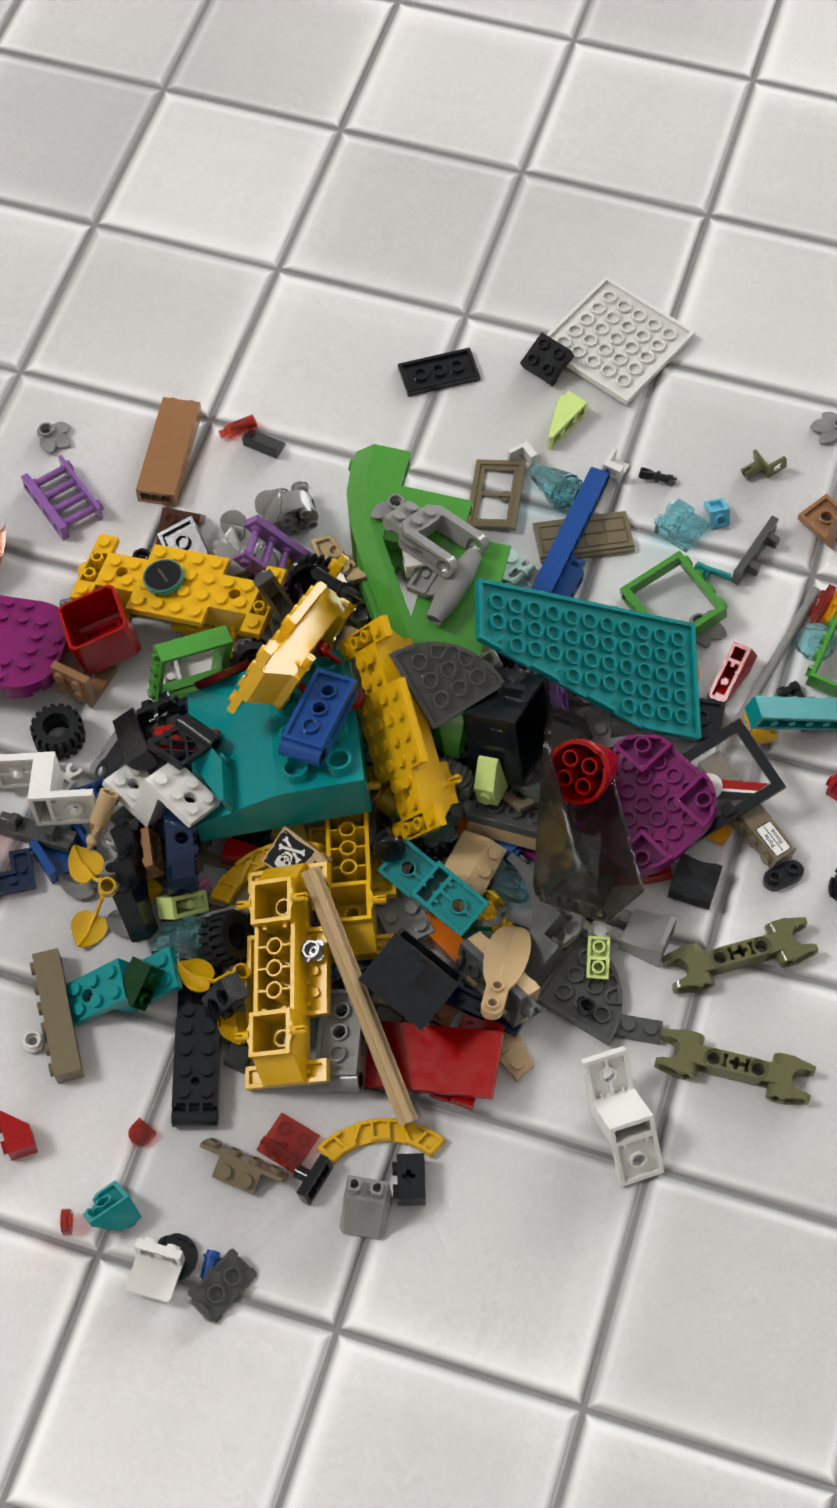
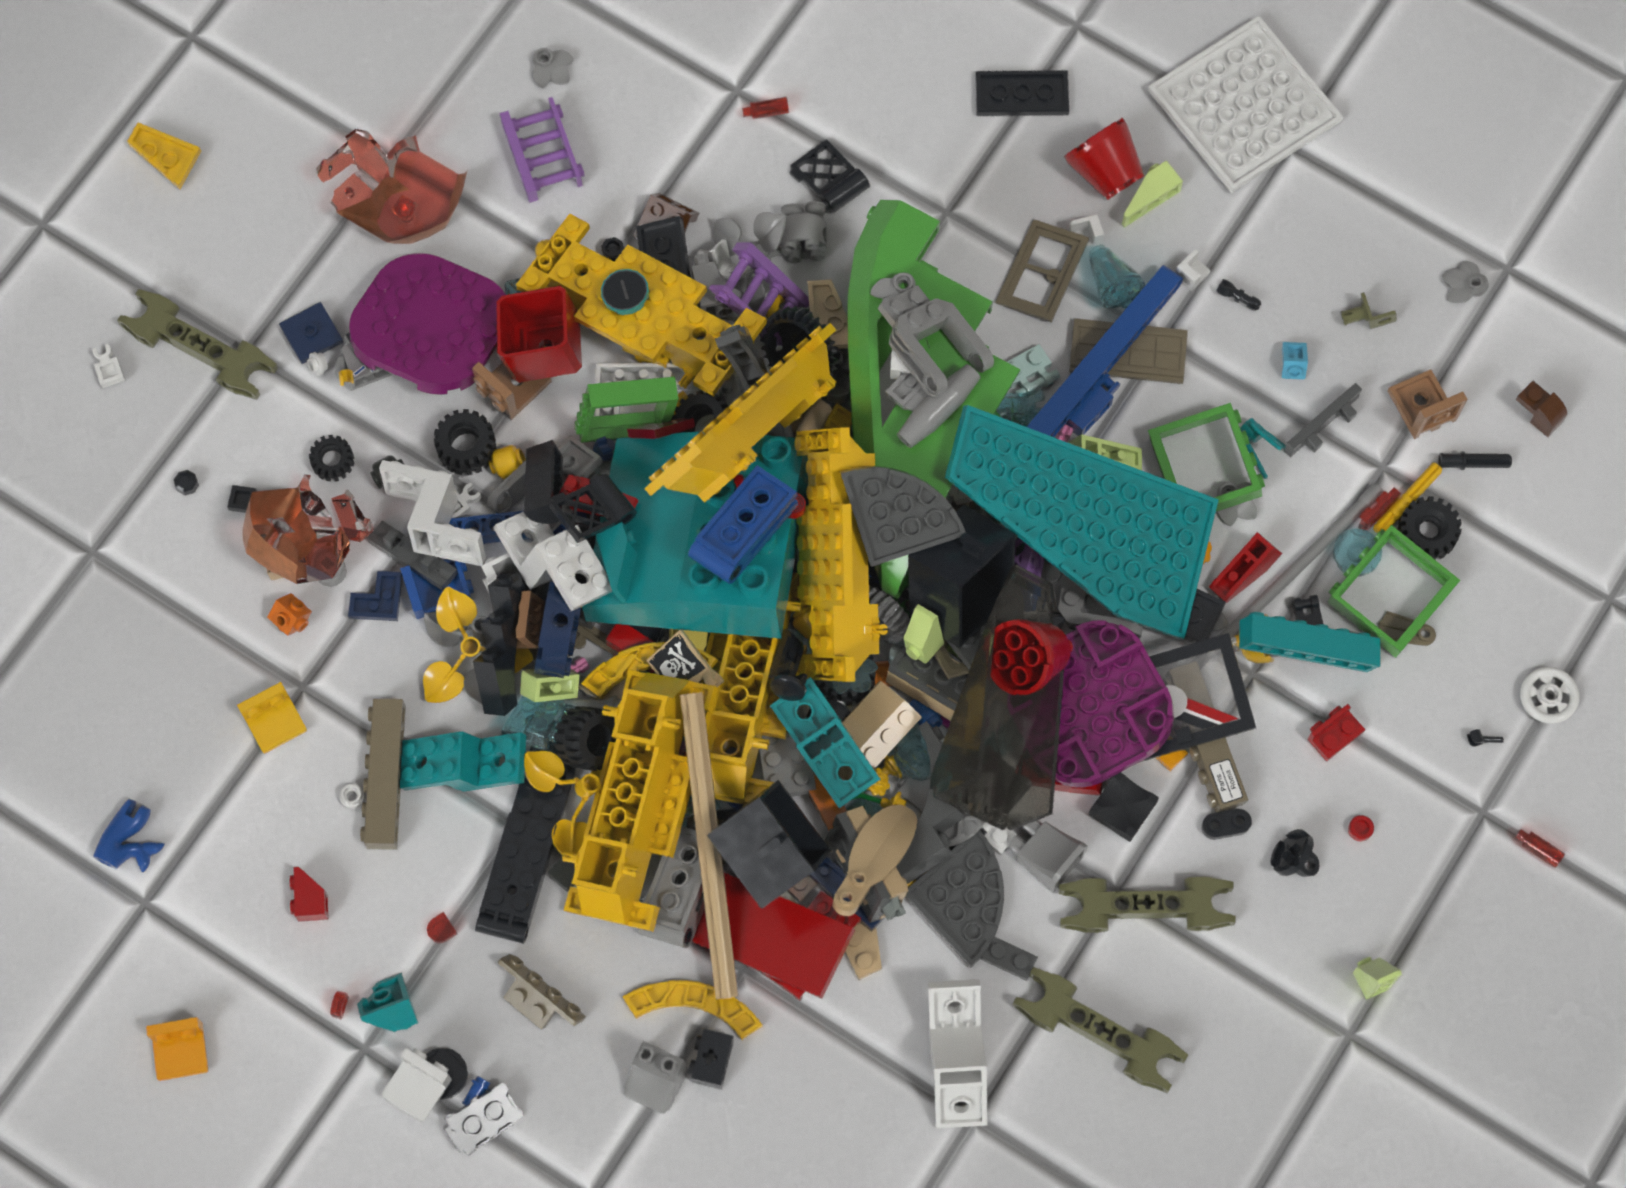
camera: 15 degrees right, 10 degrees up
(96, 738) = (506, 460): none -> yellow head
(101, 814) = (484, 562): tan wheel -> none
(141, 982) = (480, 765): dark green slope -> none
(158, 711) = (580, 452): black hips -> none
(169, 451) = (678, 120): medium nougat brick -> none
(225, 997) = (566, 807): black brick -> none
(263, 443) = (790, 136): black slope -> none
(287, 1142) = (593, 982): clear red plate -> none
(307, 949) = (665, 783): light grey plate -> none
(313, 1178) = (608, 1029): black tile -> none
(314, 471) = (843, 186): none -> black piece
(323, 650) = (774, 438): red hand -> none
(341, 589) = (815, 369): black axle -> none
(523, 399) = (1108, 160): none -> red cone
(547, 359) = (1153, 111): black brick -> none
(587, 1008) = (960, 920): black hinge -> none
(598, 957) = (987, 867): yellowish green slope -> none
(680, 525) = (1246, 365): clear light blue plate -> none

